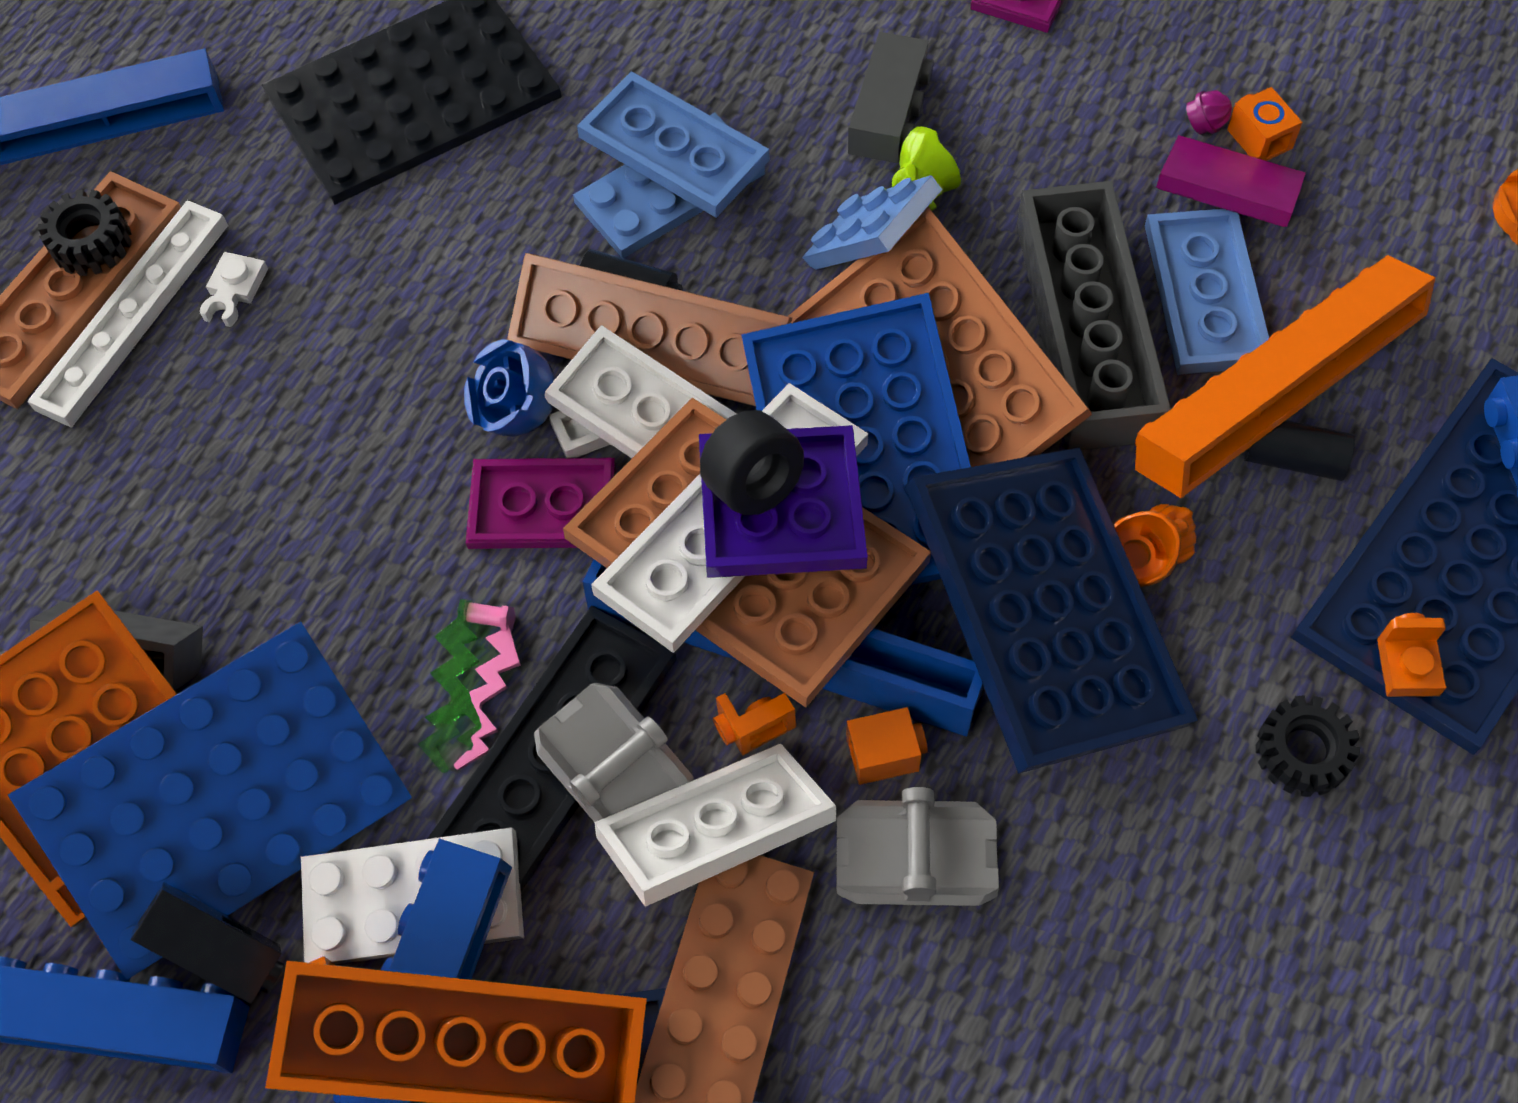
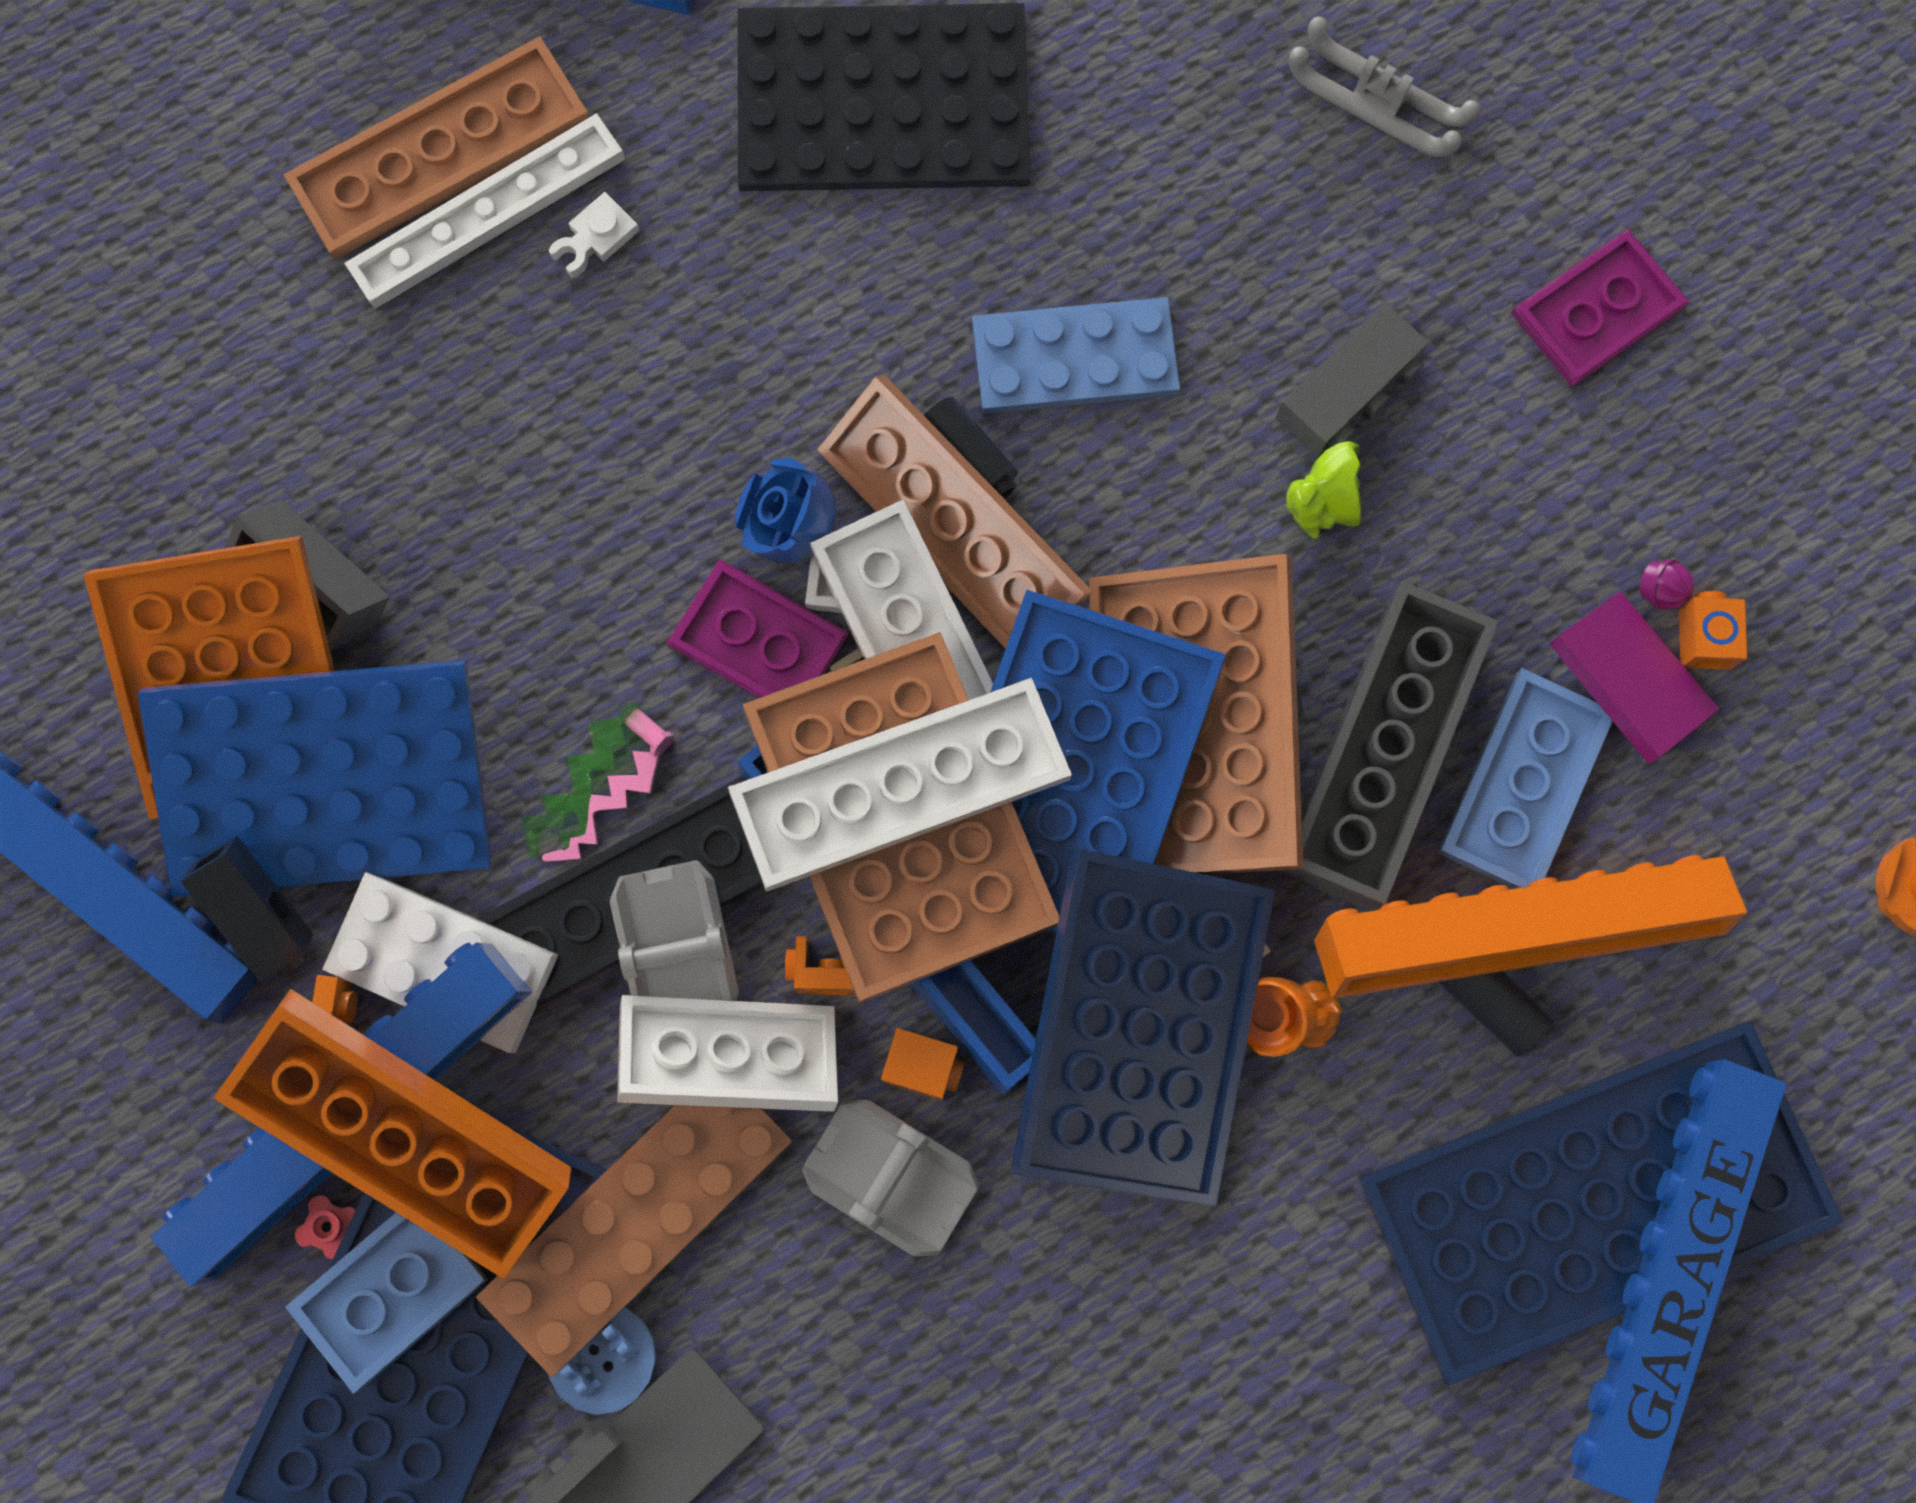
camera: 25 degrees right, 15 degrees up
(76, 215) = (471, 80): black tyre -> none
(673, 144) = (1097, 321): medium blue plate -> none
(751, 462) = (925, 766): black tyre -> none
(807, 531) = (942, 806): dark purple plate -> none
(871, 222) = (1231, 531): medium blue plate -> none
(1324, 723) = (1330, 1288): black tyre -> none
(1412, 656) = (1444, 1270): orange bracket -> none

